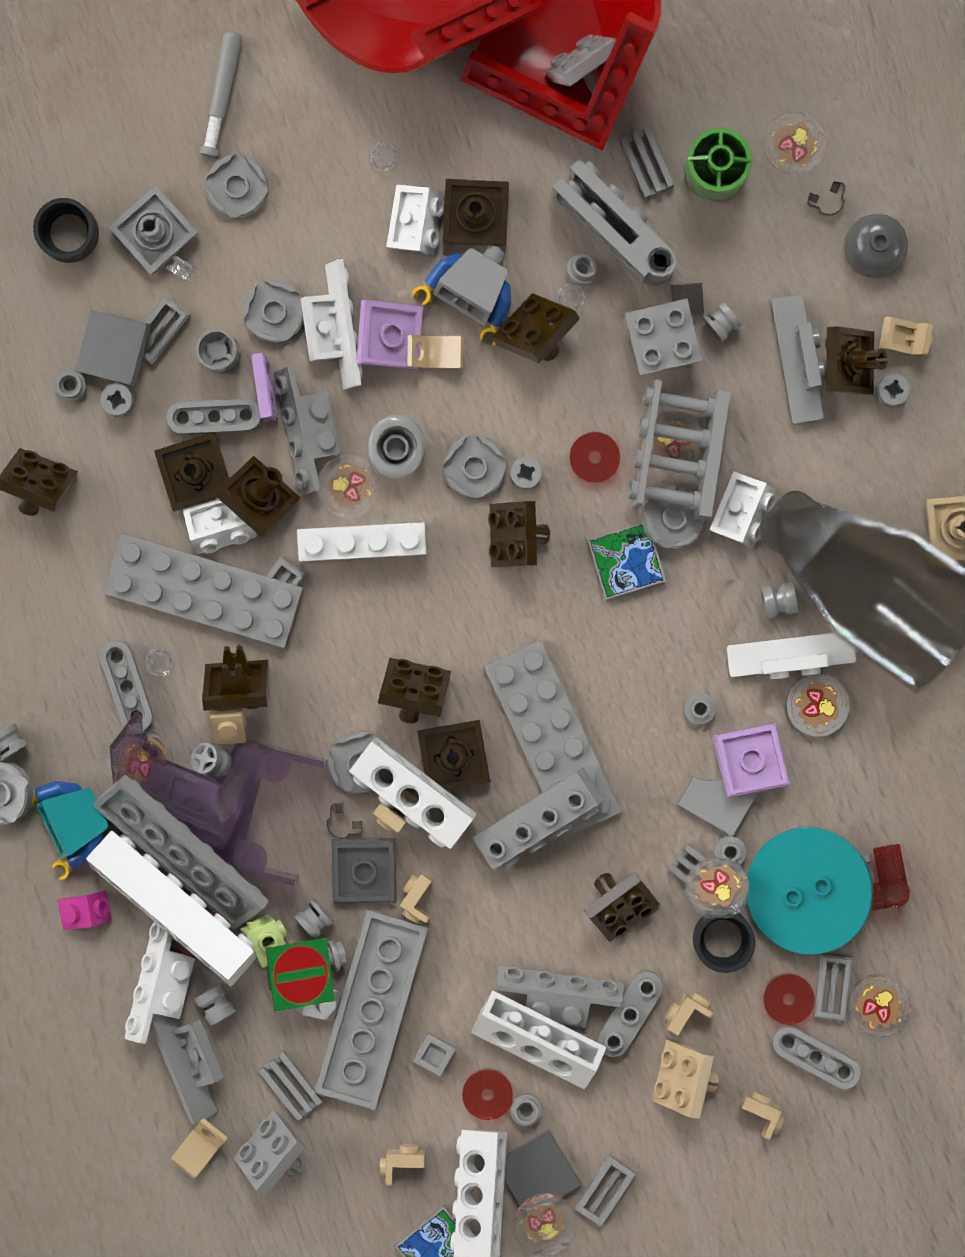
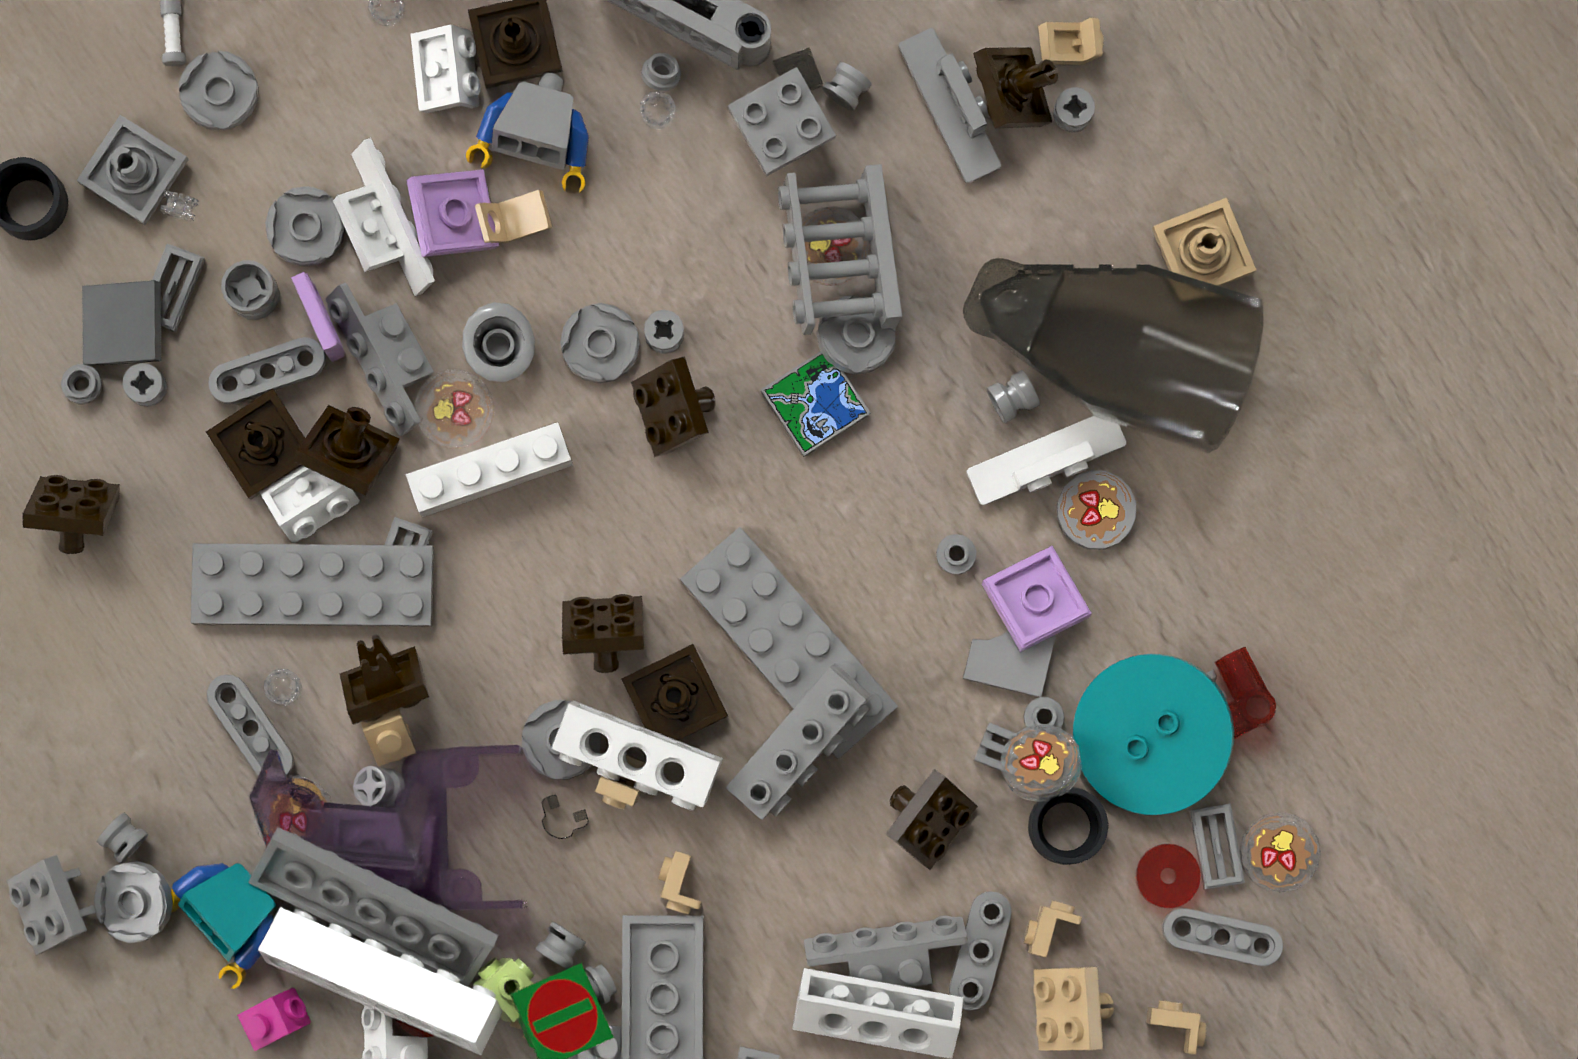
camera: 25 degrees left, 5 degrees down
(364, 870) = (604, 868): dark grey tile -> none
(536, 328) = (627, 155): dark brown plate -> none
(598, 443) = (741, 308): clear red piece -> none
(743, 509) = (938, 300): white bracket -> none

